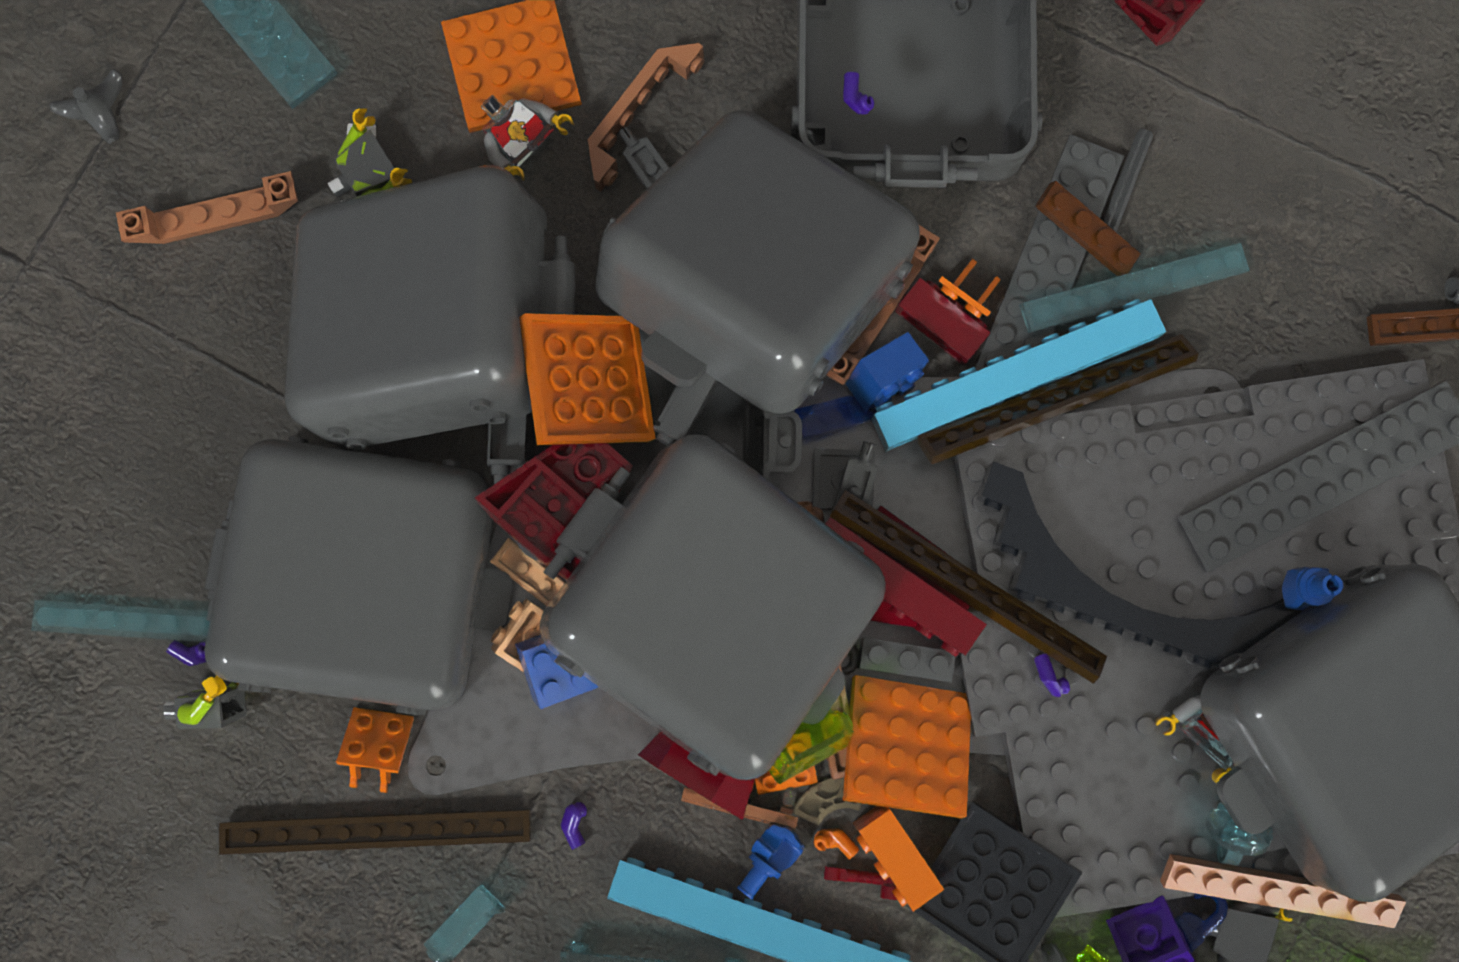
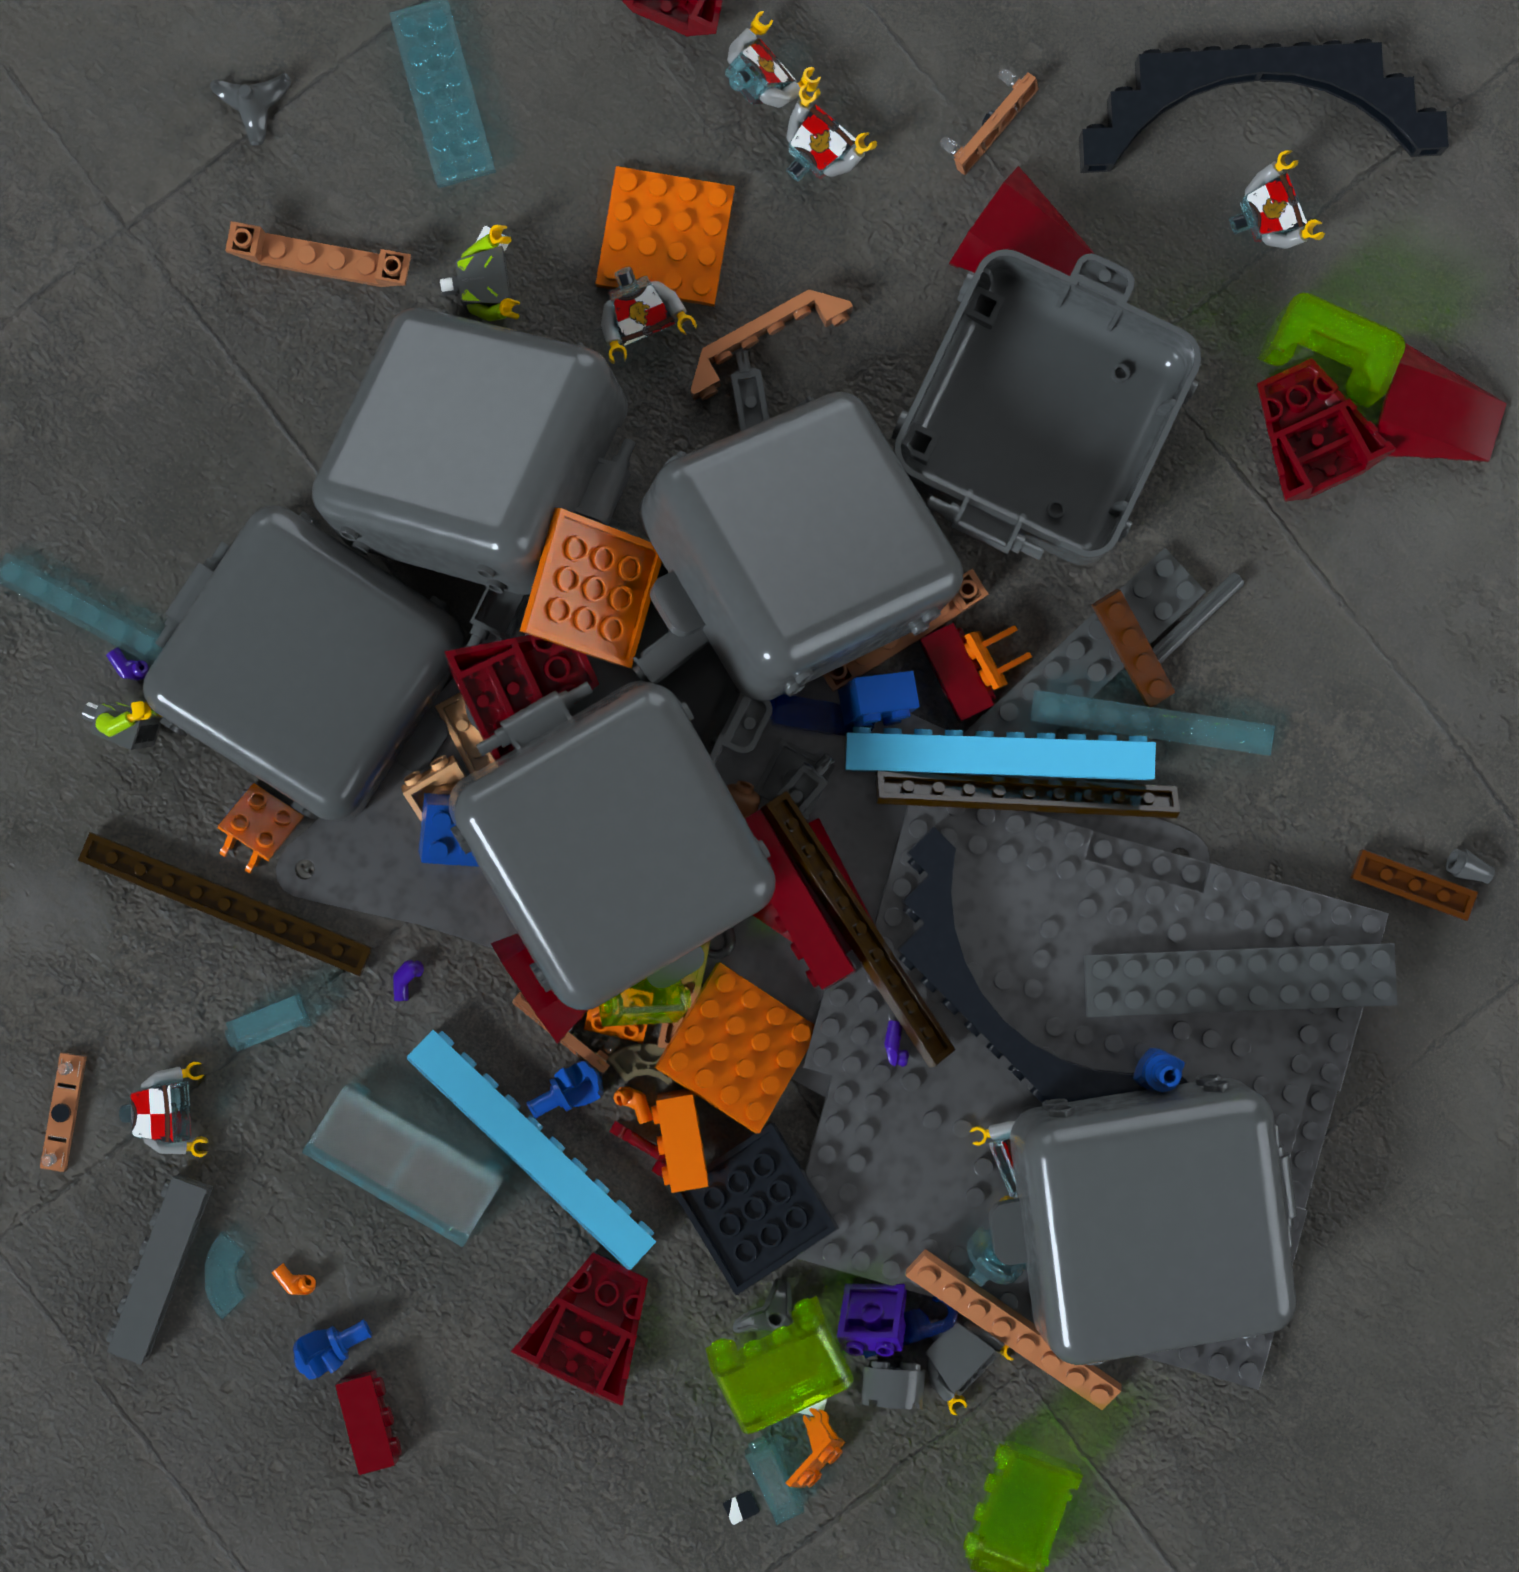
camera: 30 degrees right, 5 degrees up
(853, 97) = (960, 431): dark purple arm -> none
(906, 660) = (772, 969): dark grey brick -> none

